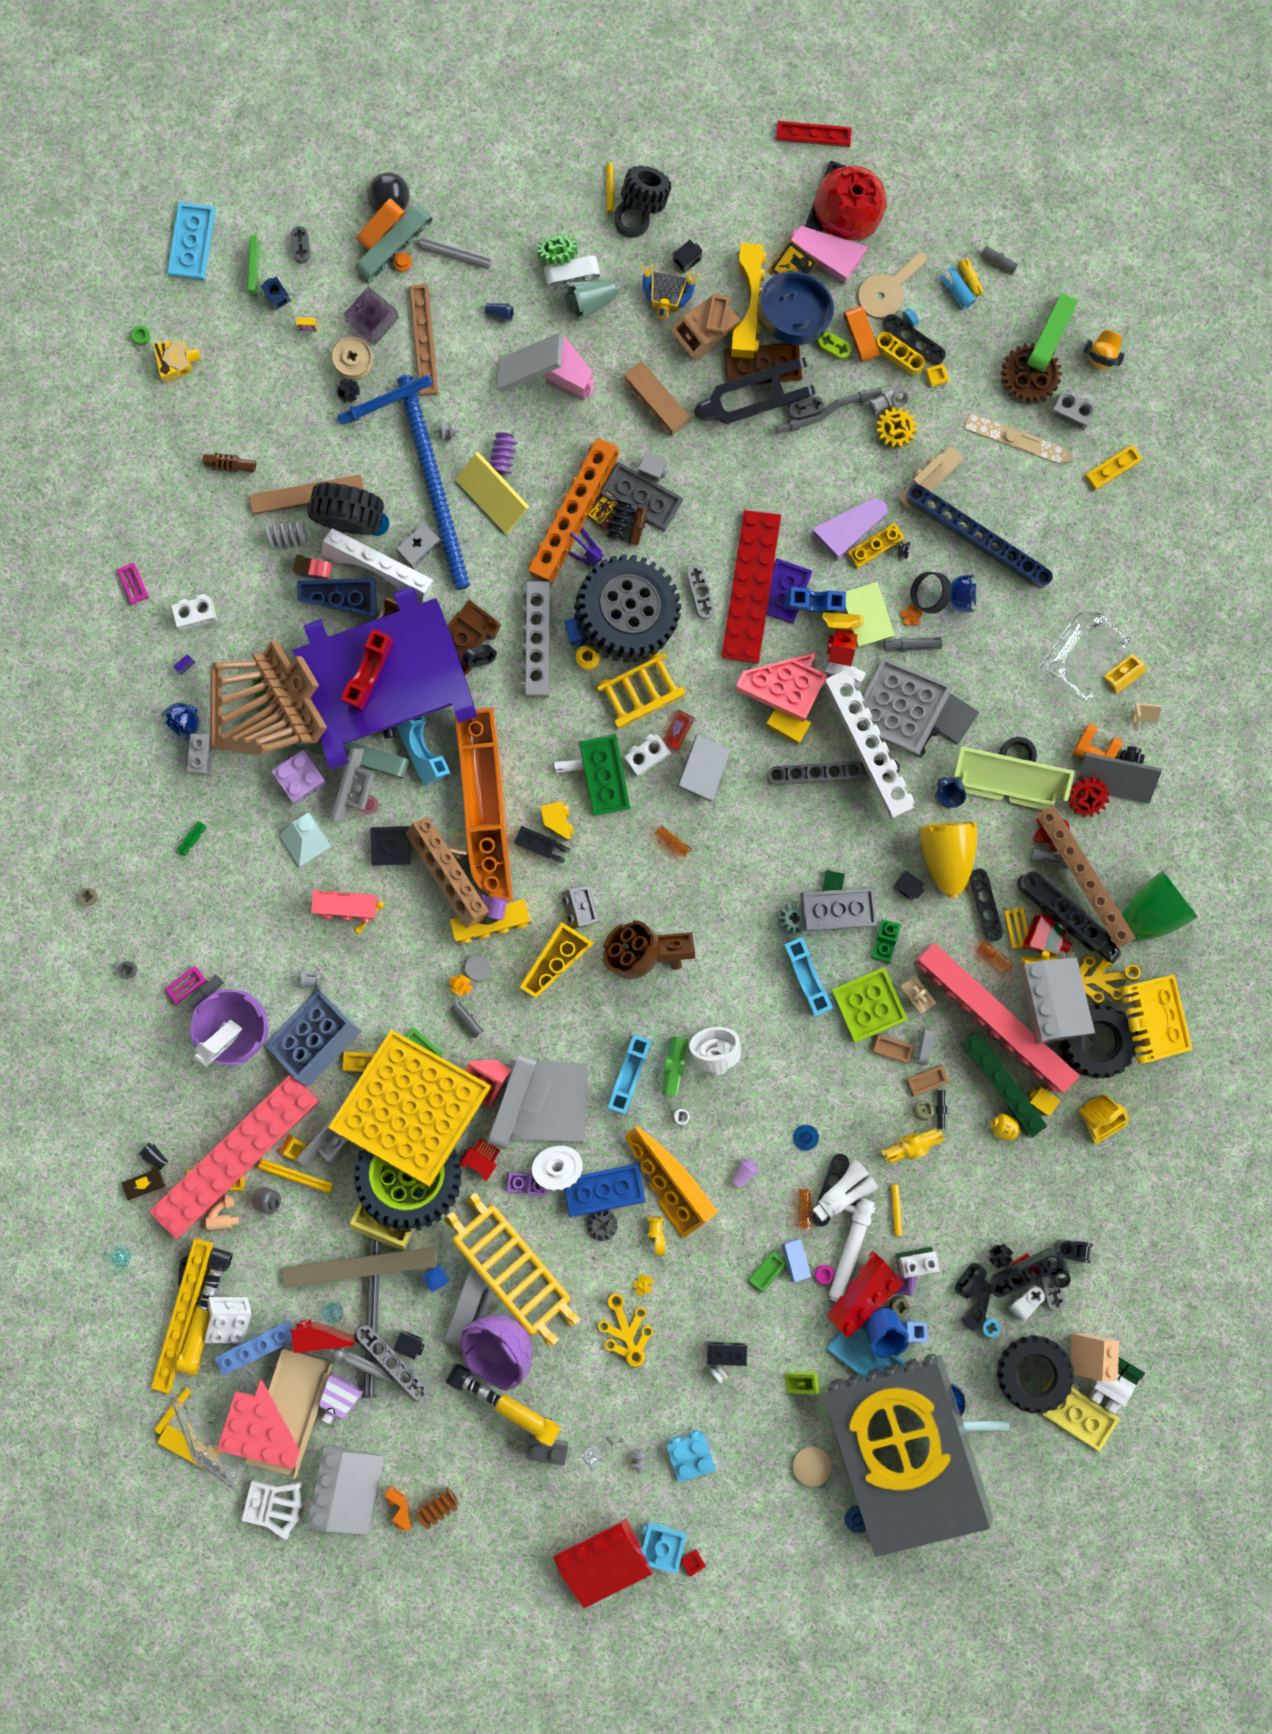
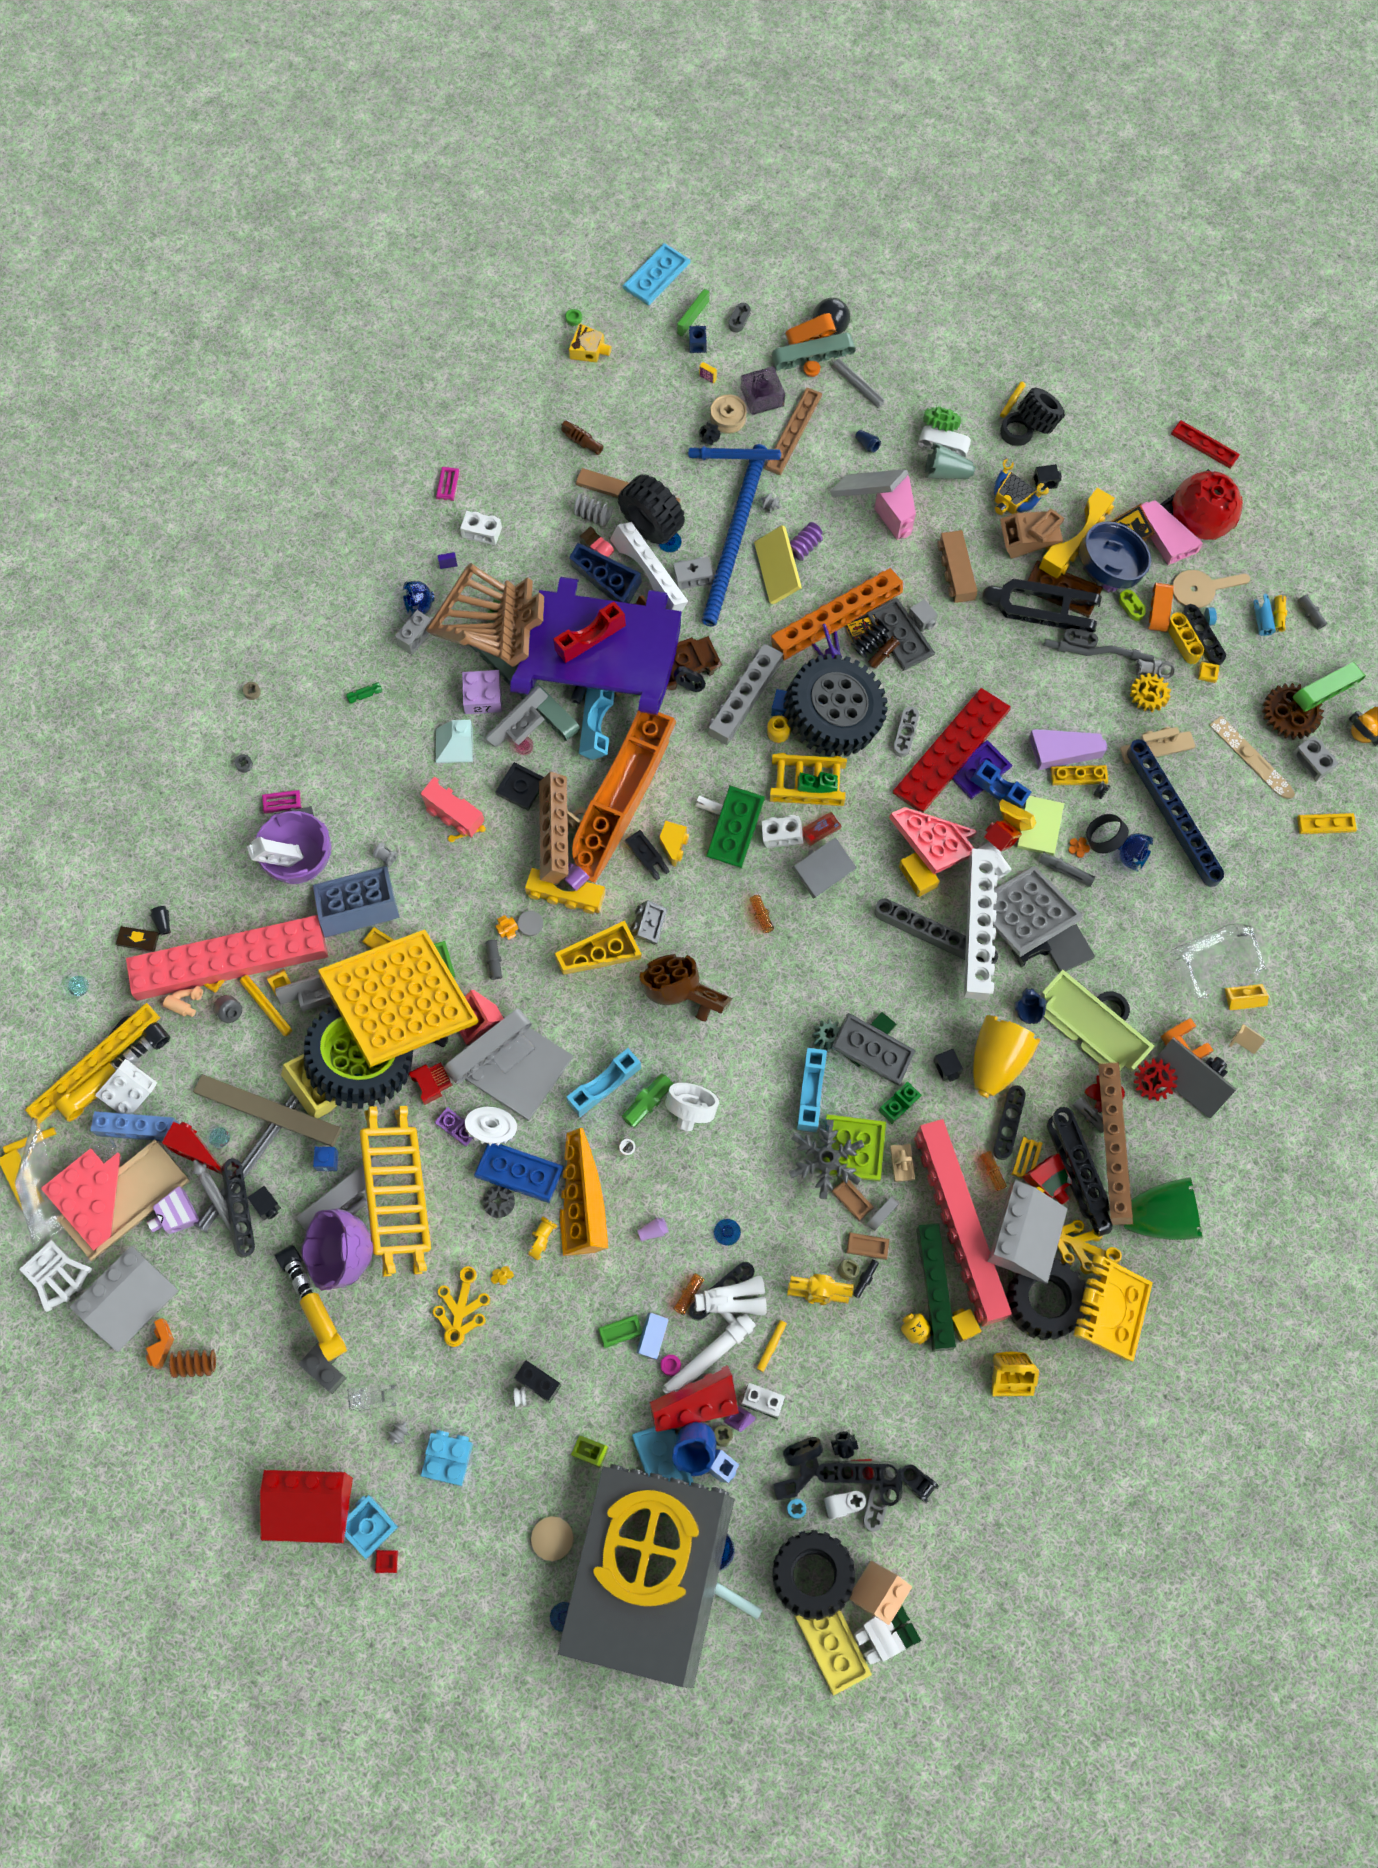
camera: 30 degrees right, 15 degrees down
(653, 693) = (822, 784): none -> green slope
(863, 1031) = (829, 1152): none -> dark grey piece

